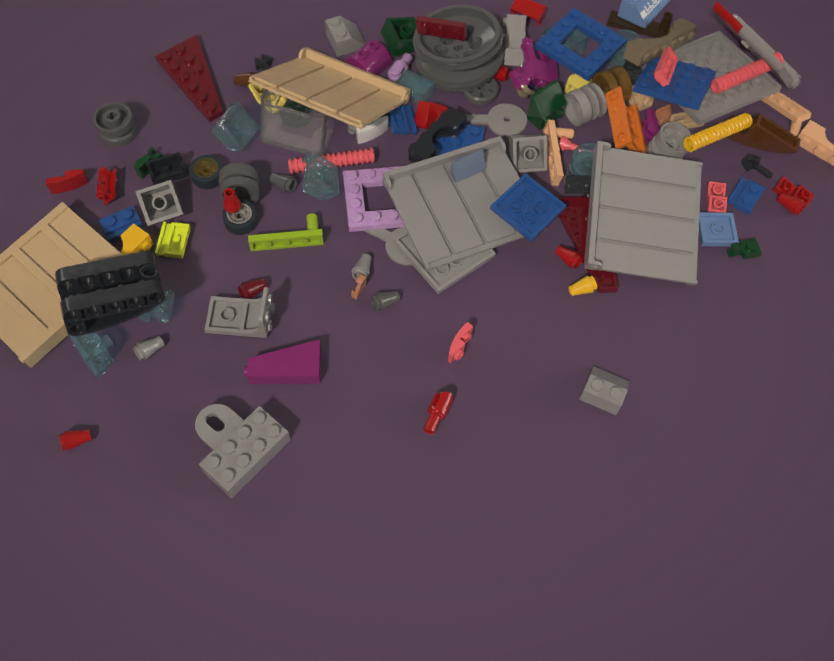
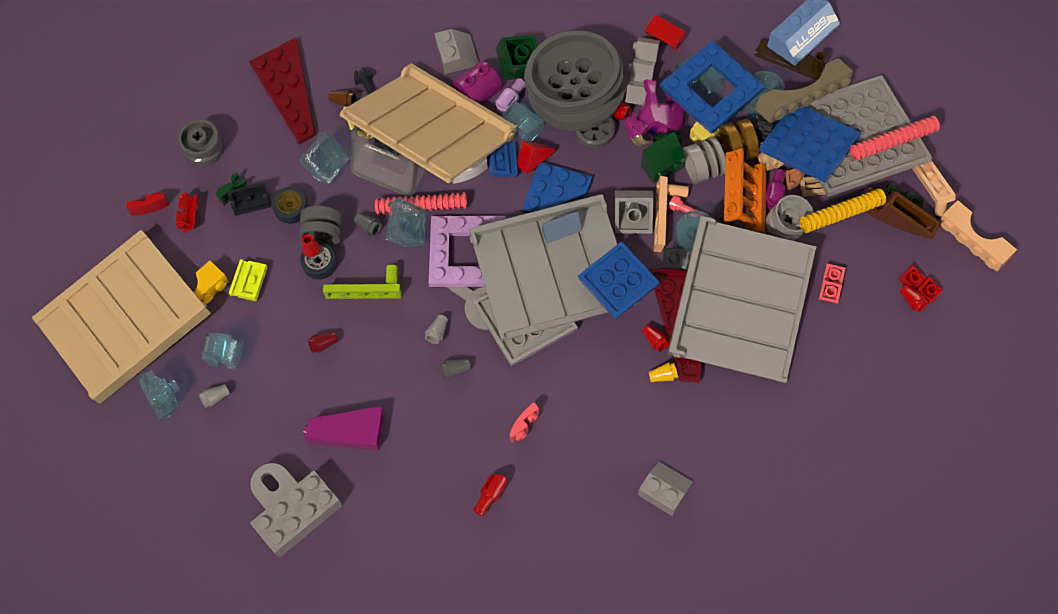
camera: 15 degrees right, 5 degrees up
(73, 439) = (135, 482): red cone -> none
(108, 291) = (179, 339): black panel -> none
(119, 222) = (197, 255): blue plate -> none
(159, 202) = (238, 239): light grey slope -> none
(240, 315) = (306, 371): light grey bracket -> none
(361, 280) = (433, 348): nougat tile -> none
(441, 28) = (554, 63): dark red plate -> none
(448, 125) = (550, 173): black arch -> none
(496, 121) = (607, 166): light grey piece -> none
(666, 66) = (799, 126): coral plate -> none
(717, 229) = (823, 321): medium blue plate -> none
(745, 195) = (866, 283): blue plate -> none
(746, 248) = (852, 346): dark green plate -> none
(752, 162) = (880, 245): black bar -> none
(757, 46) = (909, 89): light grey piece -> none

